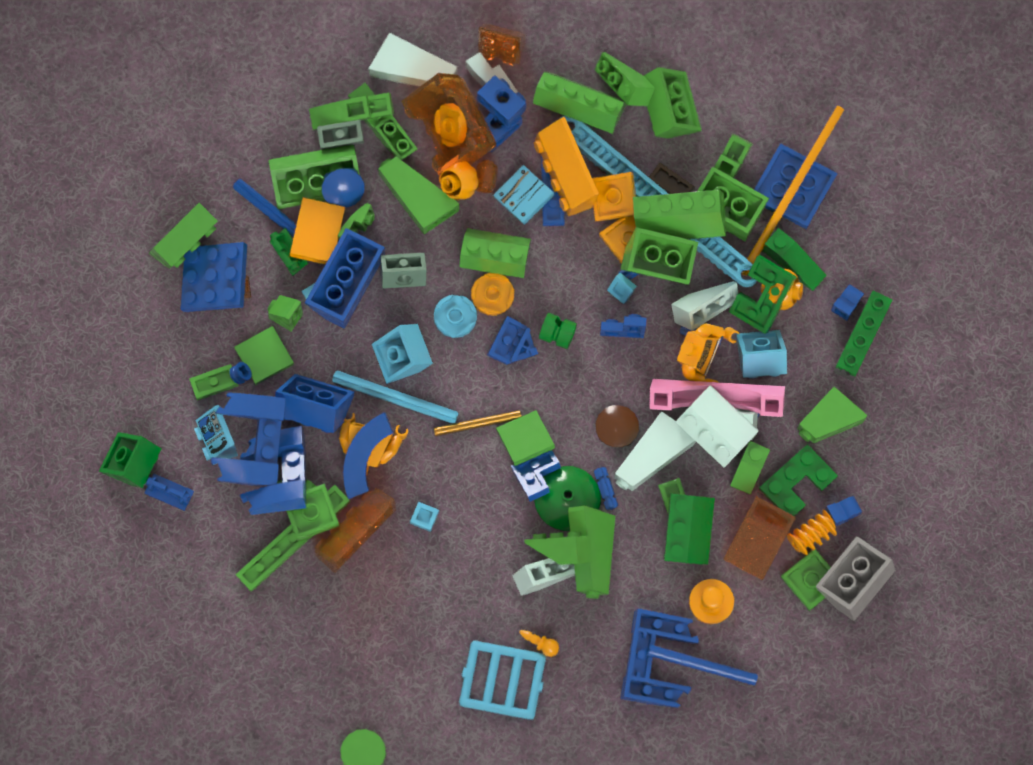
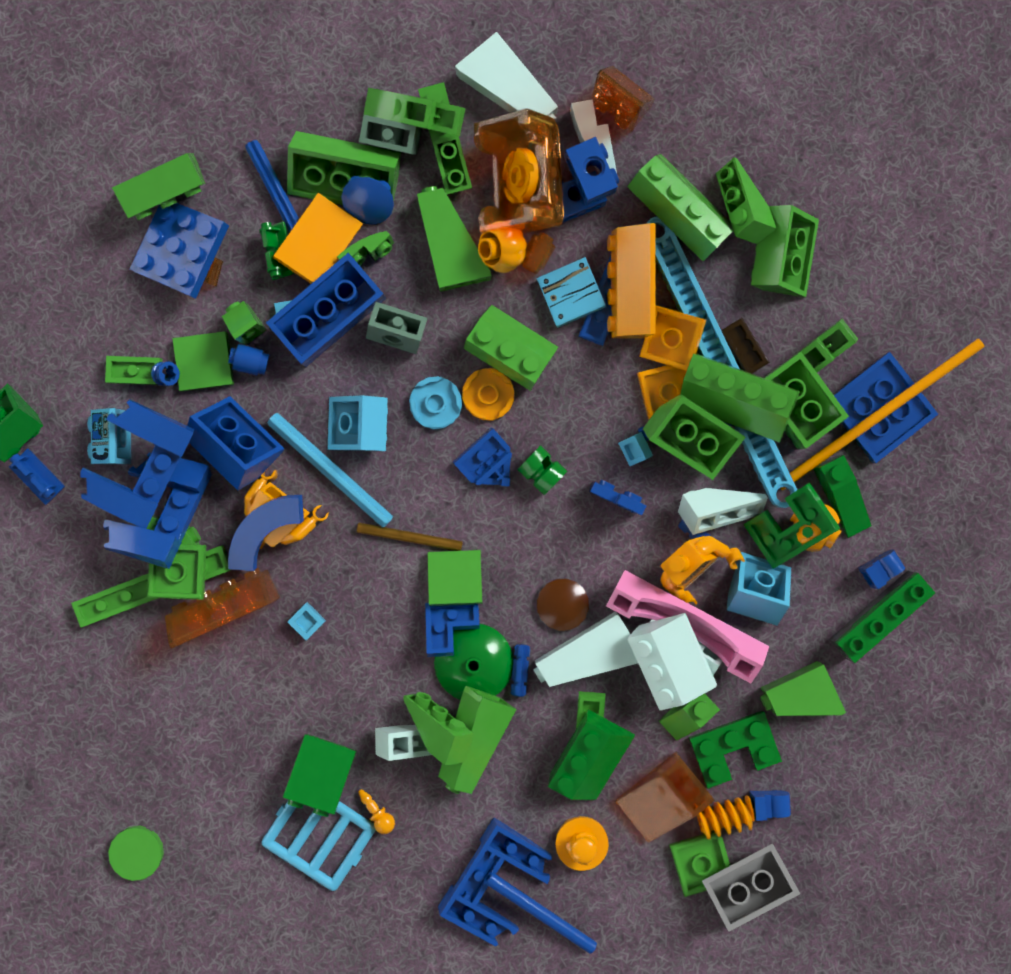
camera: 20 degrees right, 15 degrees up
(299, 338) = (248, 360): none -> blue brick
(484, 626) = (319, 775): none -> green panel

